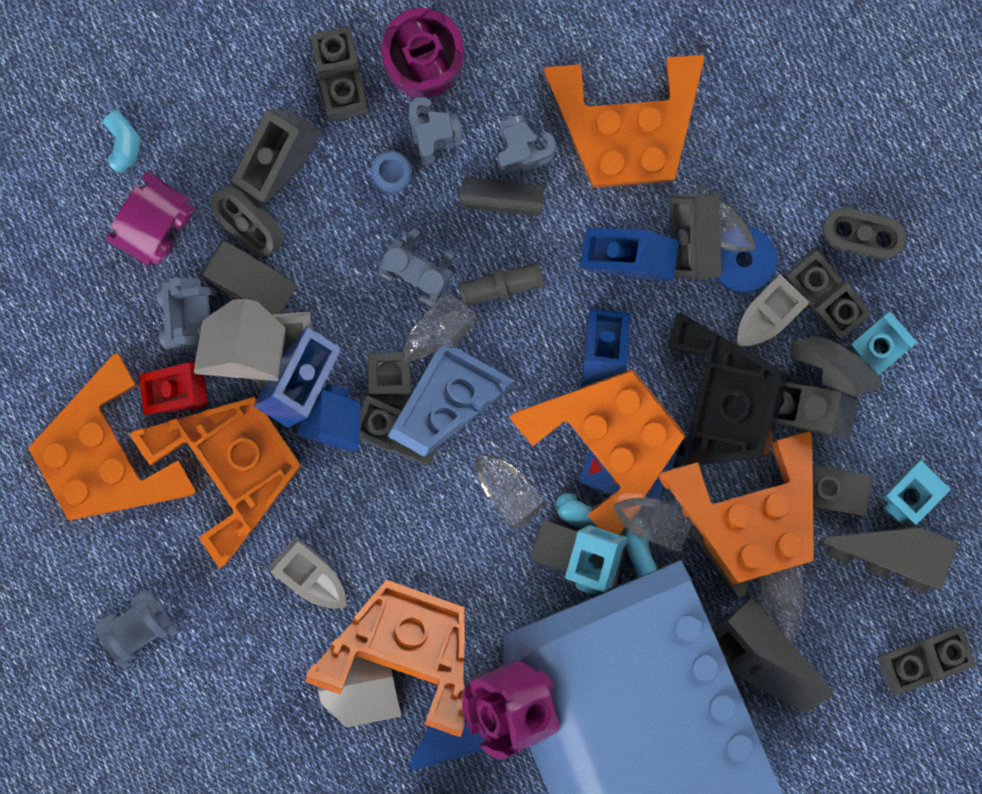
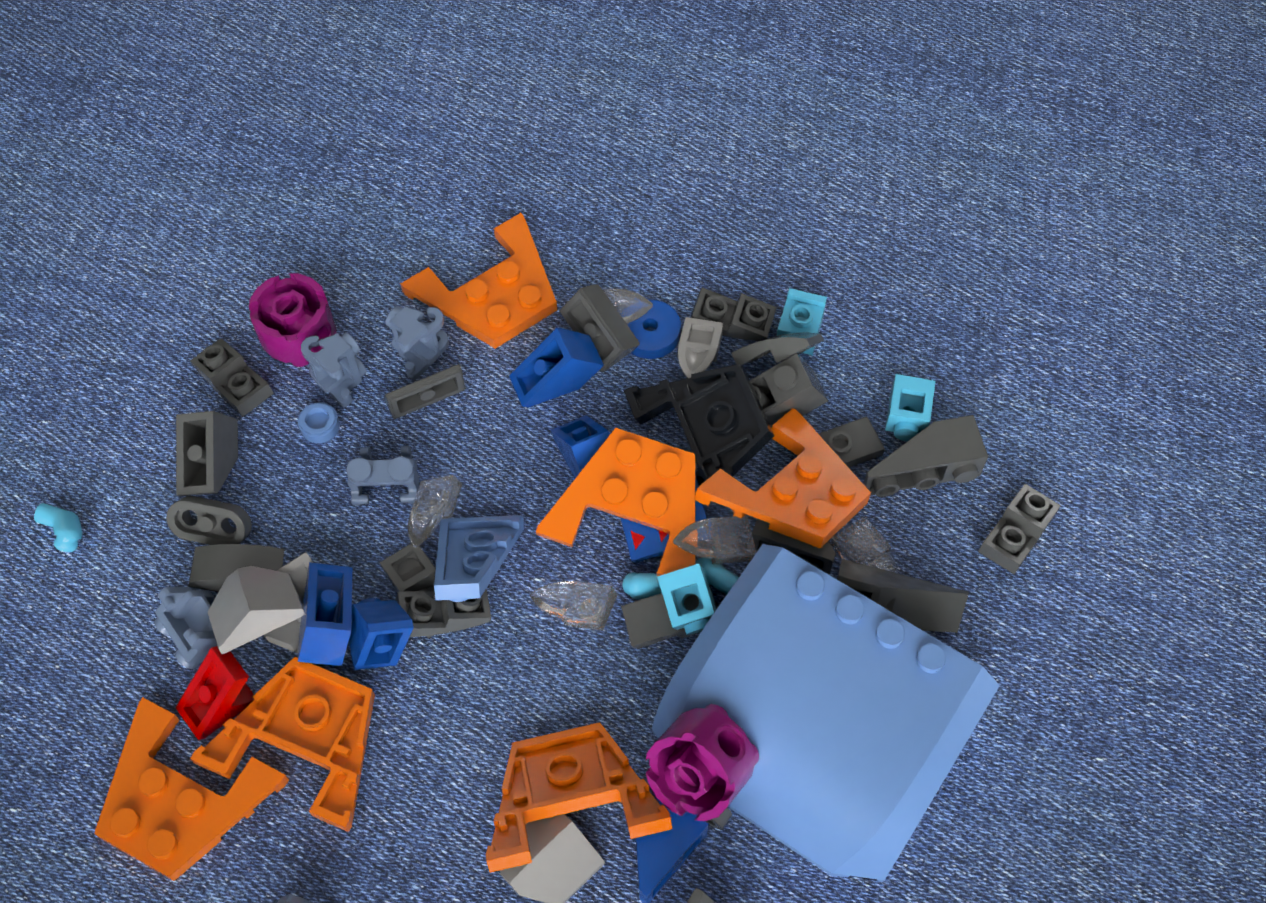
camera: 30 degrees left, 25 degrees down
(149, 220) = (115, 562): magenta brick -> none
(308, 575) = (437, 783): light grey plate -> none
(501, 284) = (465, 448): dark grey pin -> none
(863, 233) = (727, 259): dark grey plate -> none

